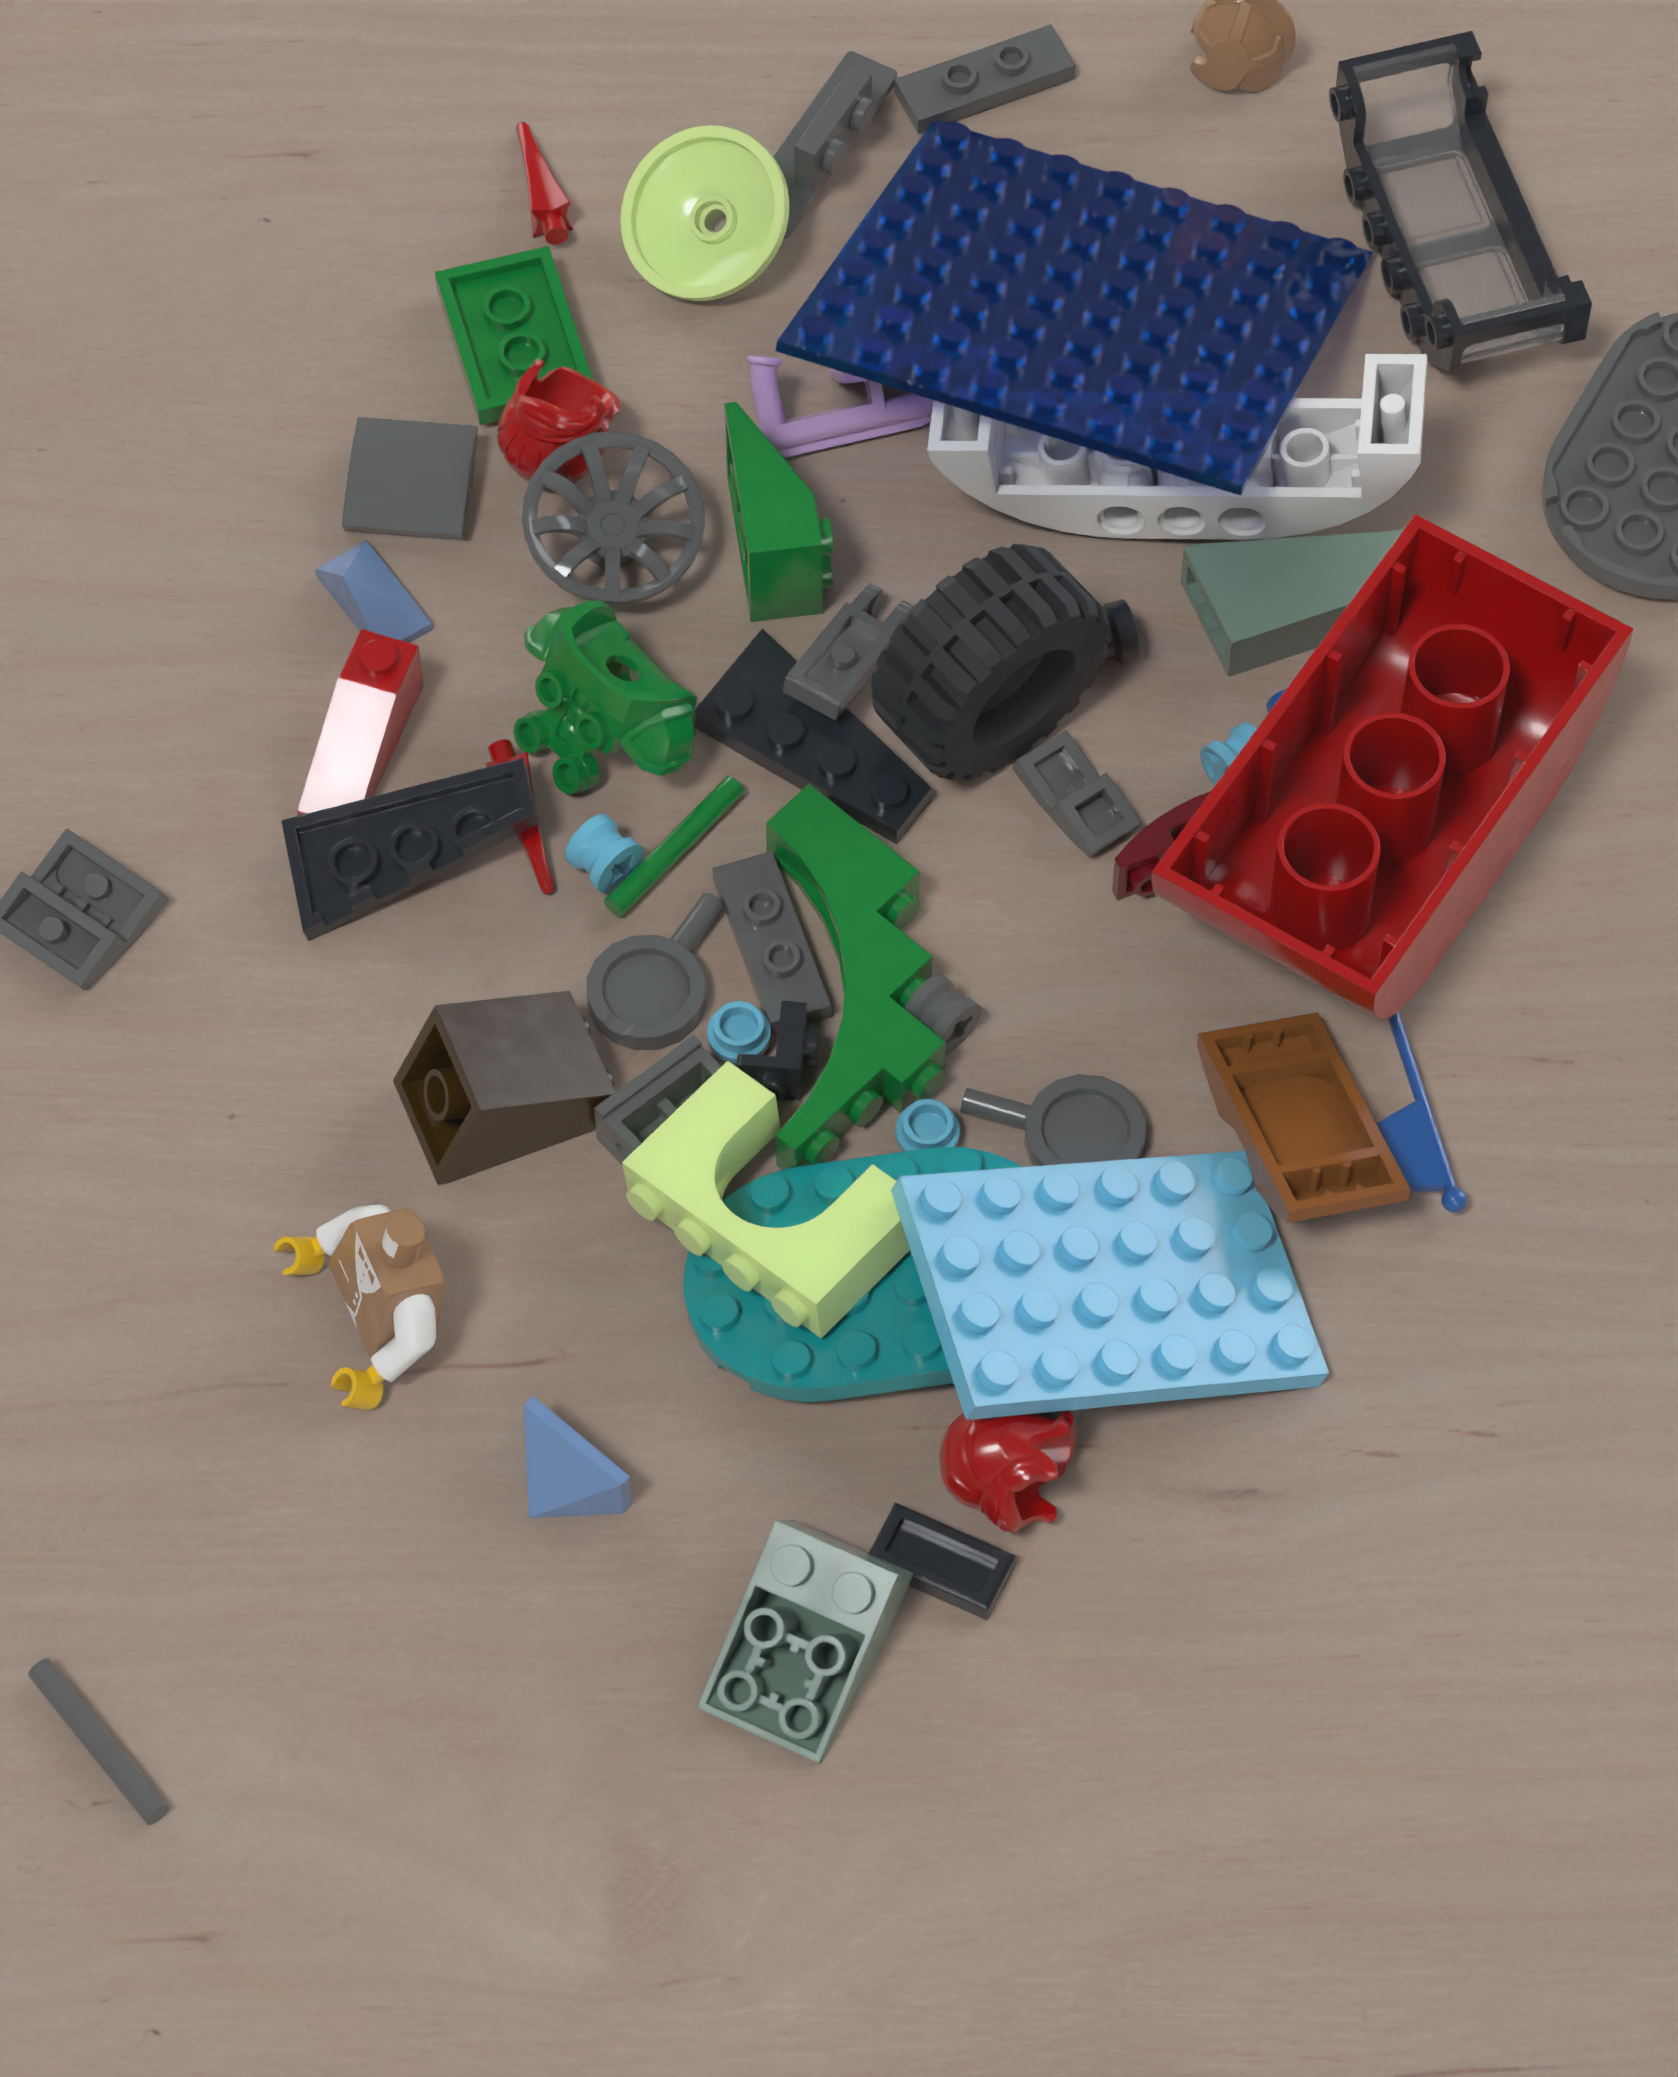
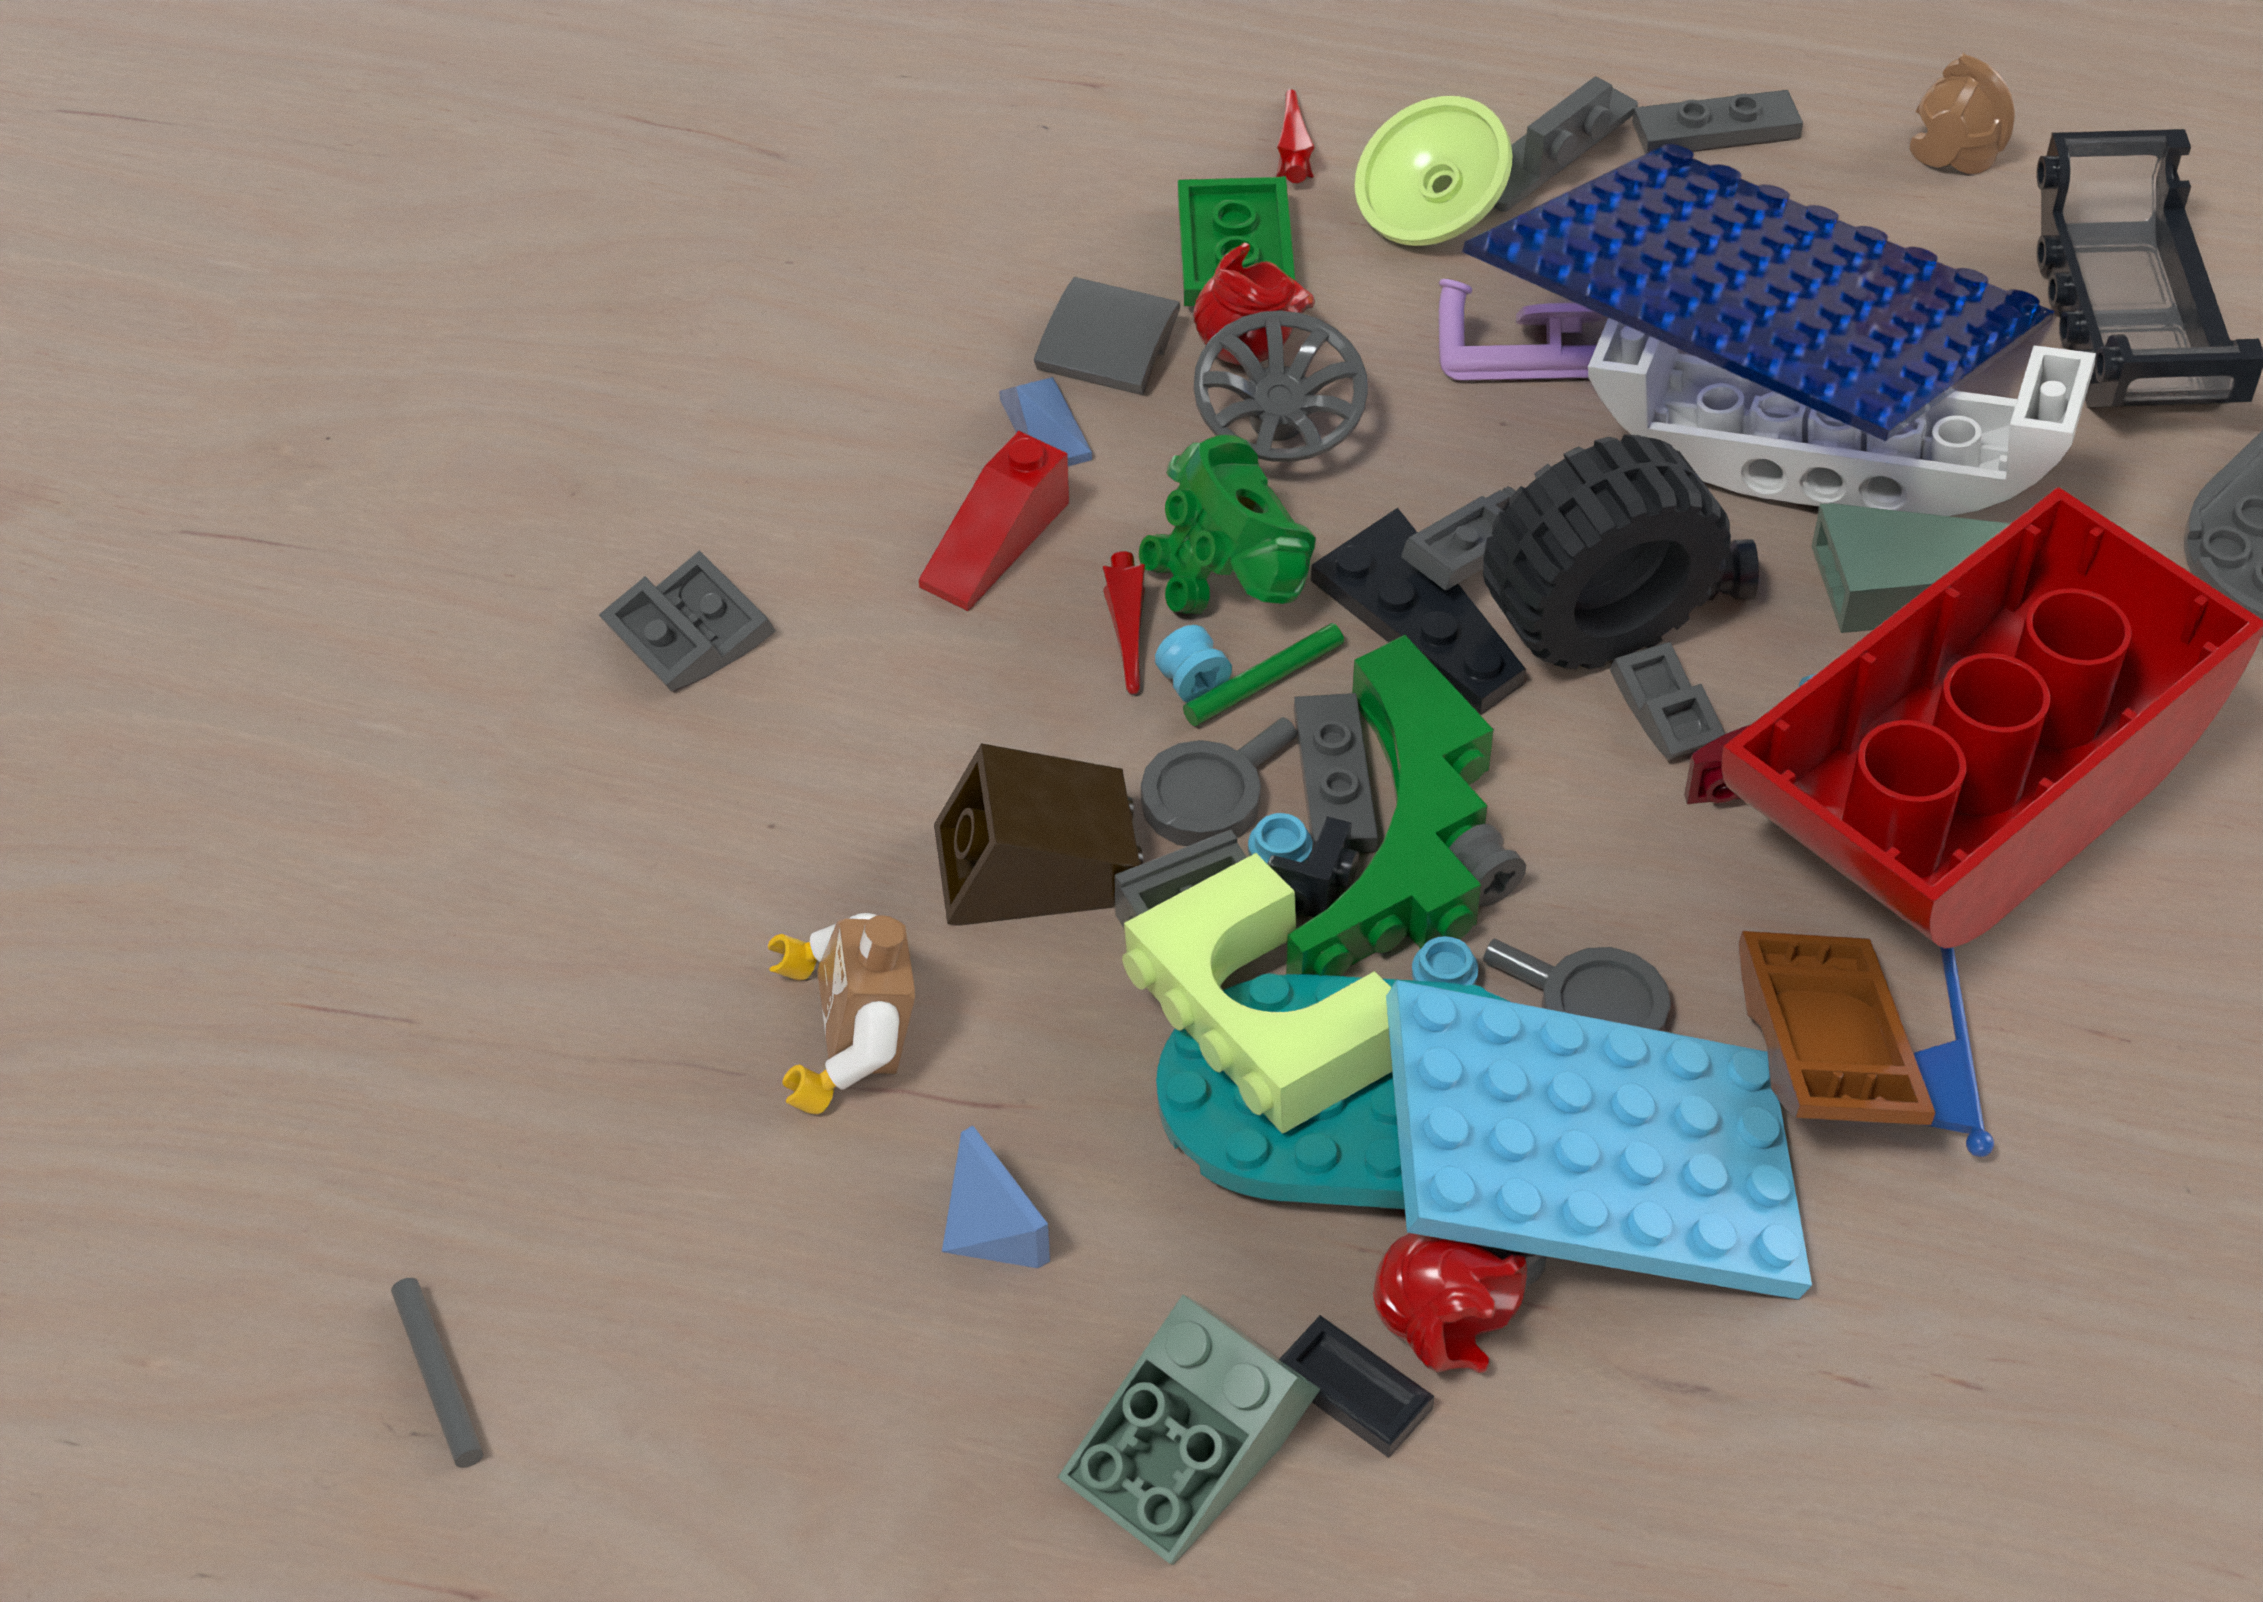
camera: 15 degrees right, 10 degrees down
(391, 842) = (995, 616): black wing -> none
(776, 526) = (1431, 421): green slope -> none

